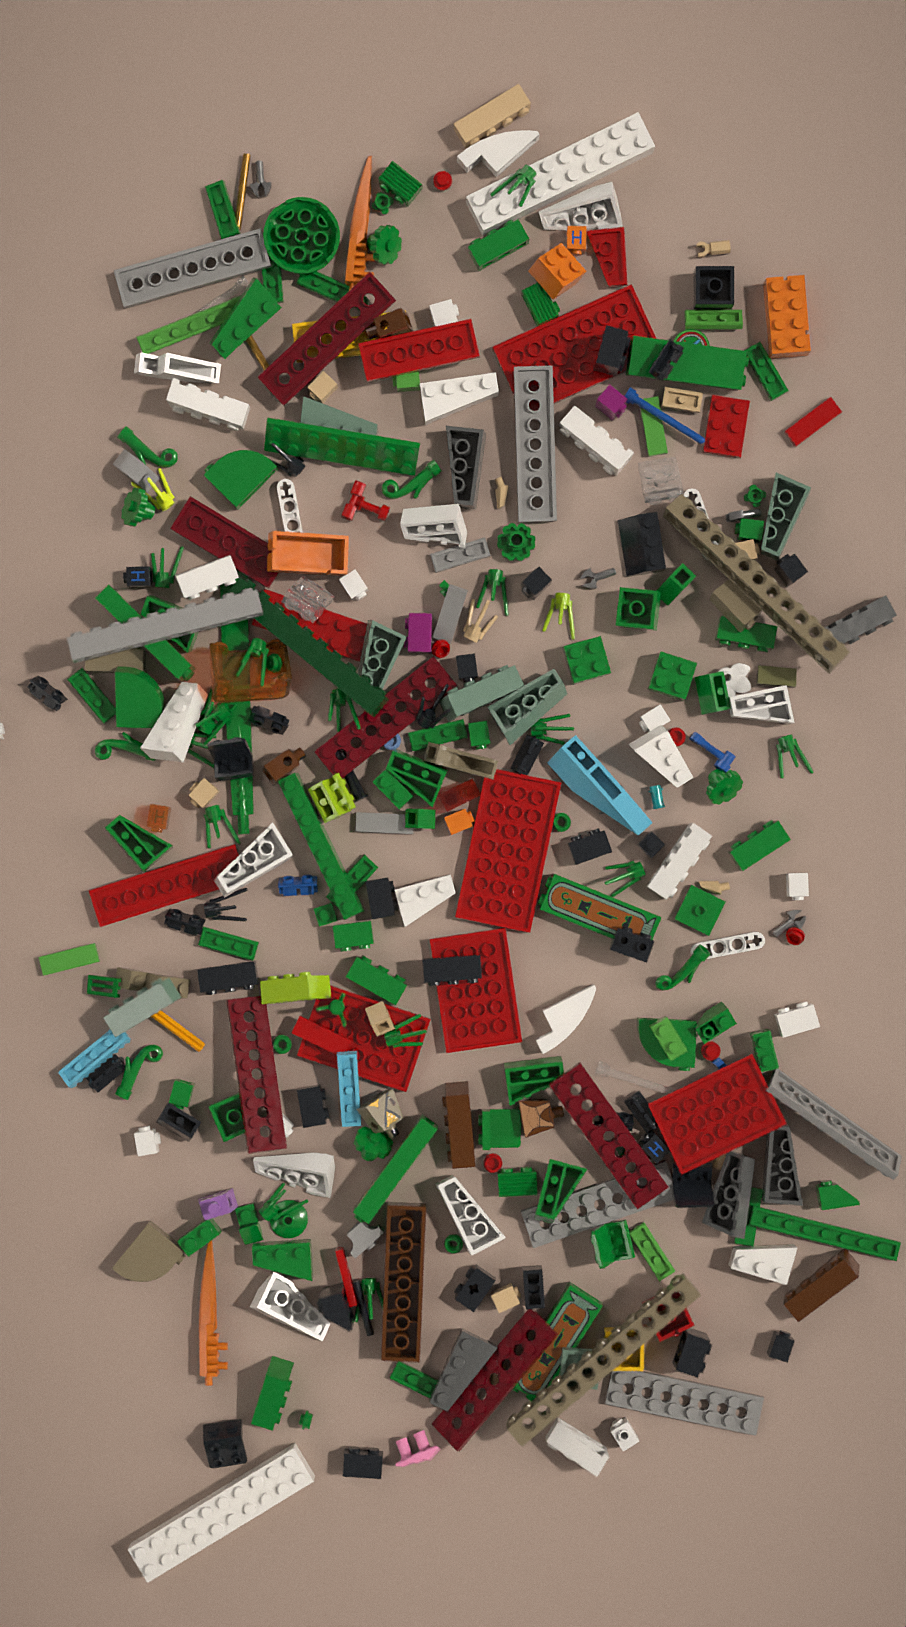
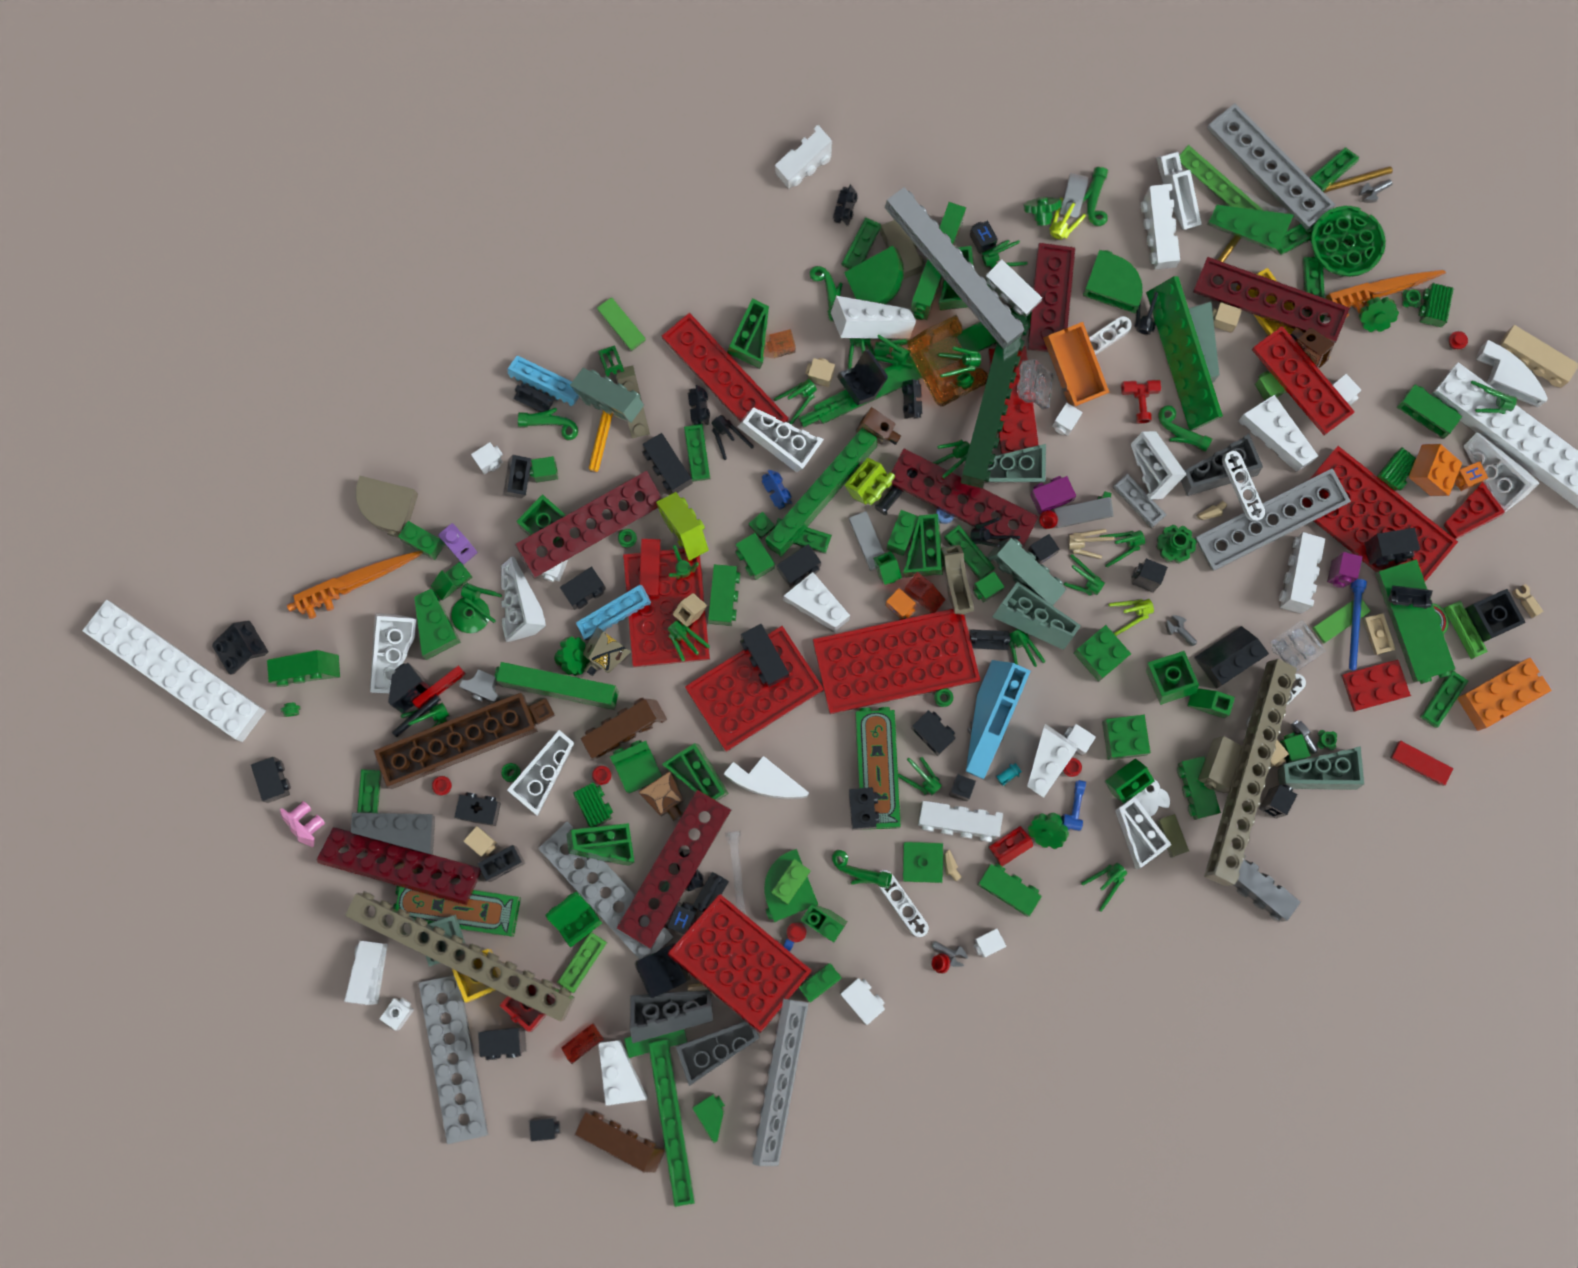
camera: 65 degrees right, 10 degrees down
(409, 1191) = (542, 711): none -> reddish brown tile
(437, 1311) = (441, 785): none -> red plate
(494, 457) = (1247, 484): none -> white beam
(519, 636) = (1094, 582): none -> green plant
(720, 824) = (1011, 846): none -> red slope
(722, 1282) = (582, 1043): none -> clear red plate

